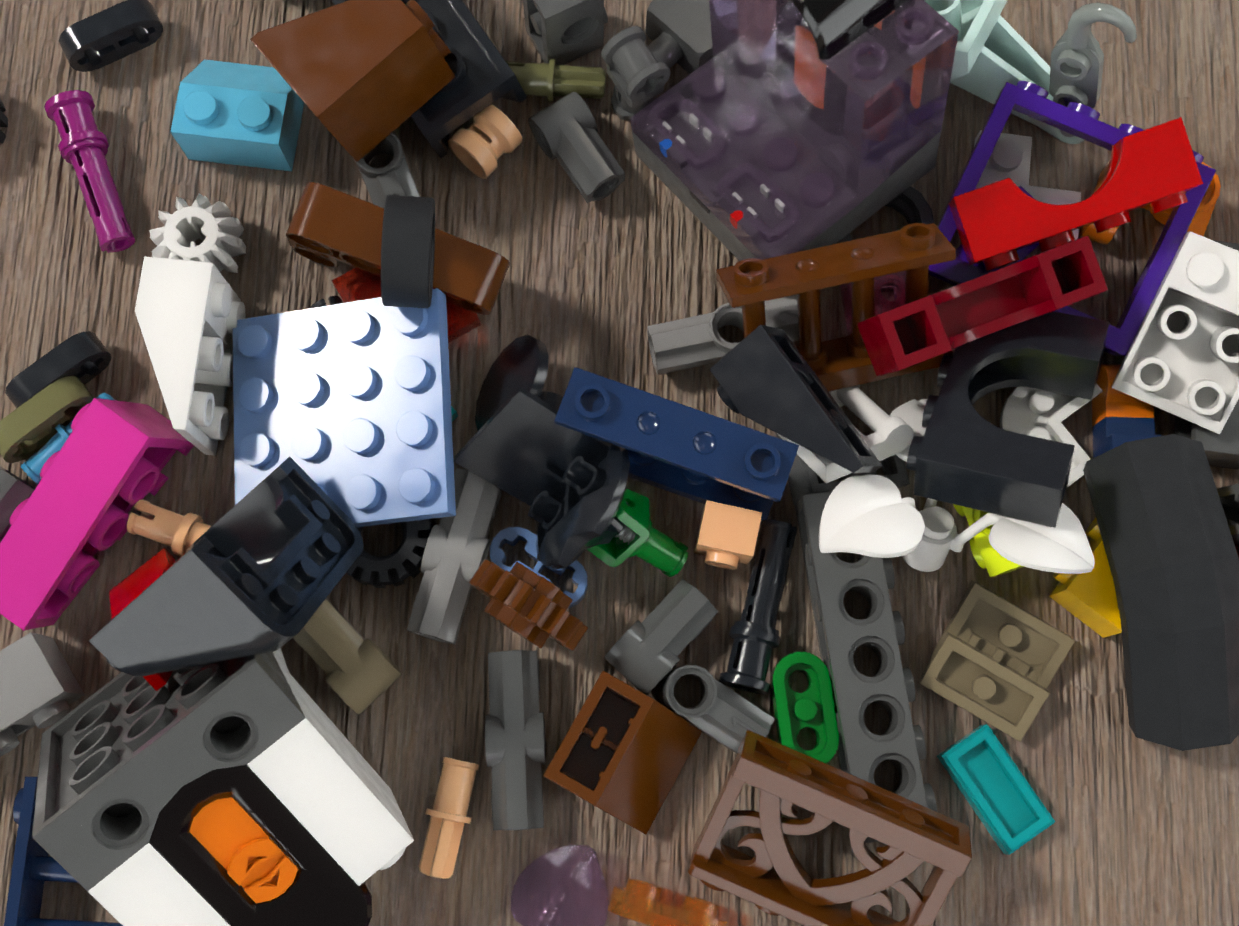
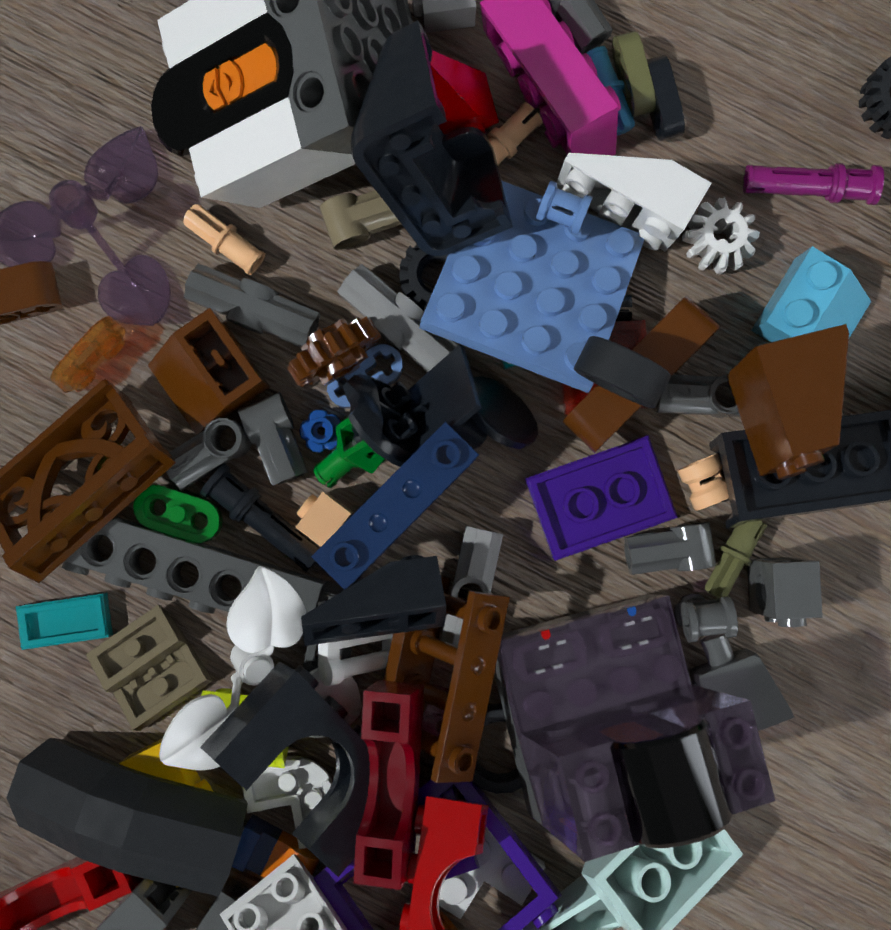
camera: 115 degrees right, 10 degrees up
(240, 413) = (563, 207): none -> medium blue bush
(556, 247) = (601, 498): none -> dark purple tile
(627, 603) = (309, 428): none -> blue plate

